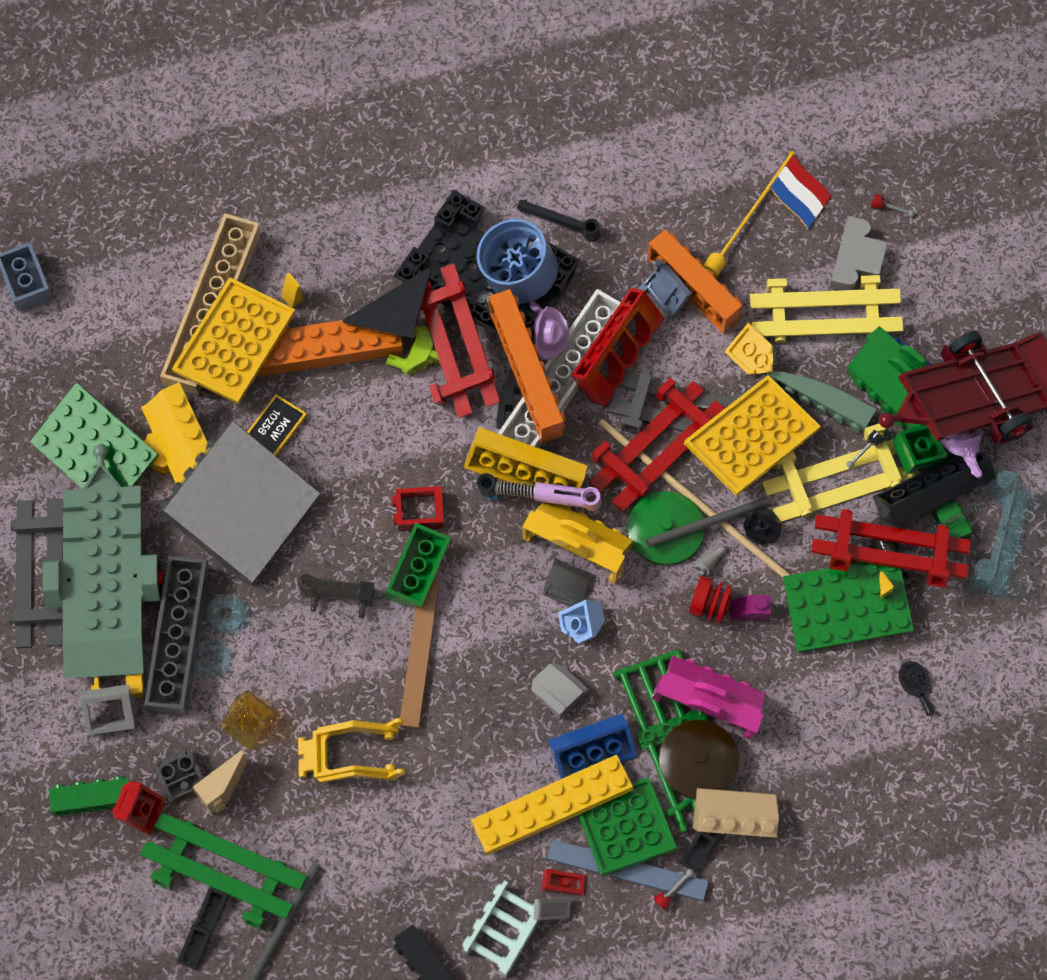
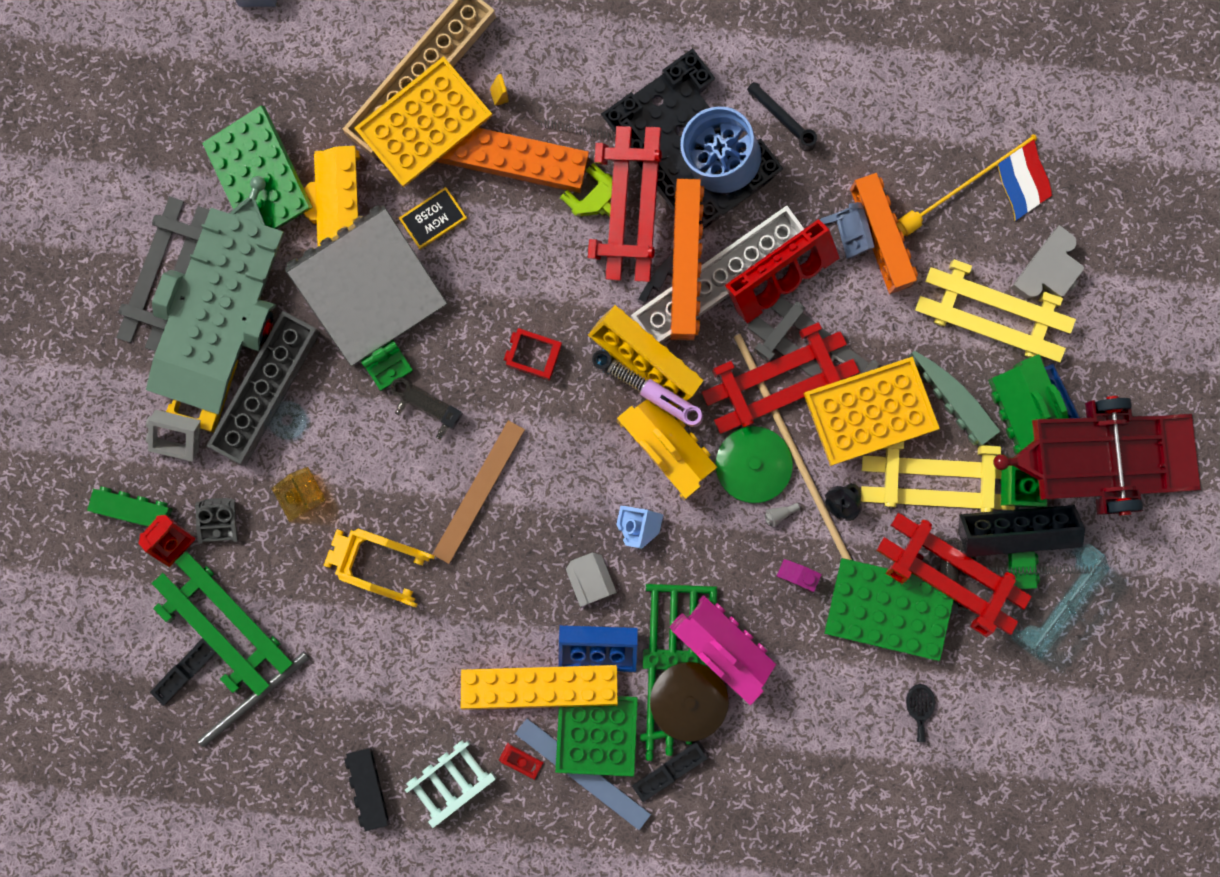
camera: 20 degrees right, 15 degrees up
(219, 785) = (246, 549): tan slope -> none
(222, 603) = (317, 372): clear light blue tile -> none
(284, 571) = (386, 365): none -> green plate
(396, 310) = (586, 153): black tile -> none
(417, 566) = (508, 411): green slope -> none
(550, 331) = (723, 232): lavender hat -> none
(552, 908) = (498, 785): light grey tile -> none
(566, 583) = (640, 482): dark grey slope -> none
(664, 899) = (603, 815): hinge -> none
(708, 522) = (796, 477): dark grey piece -> none
(710, 599) = (764, 554): red wheel -> none
(736, 812) = (701, 767): tan slope -> none
(751, 351) = (907, 326): yellow tile -> none
(875, 439) = (985, 461): hinge -> none
(879, 202) = (1095, 221): hinge -> none
(885, 585) = (931, 611): yellow slope -> none
(966, 446) = (1068, 510): lavender hat -> none

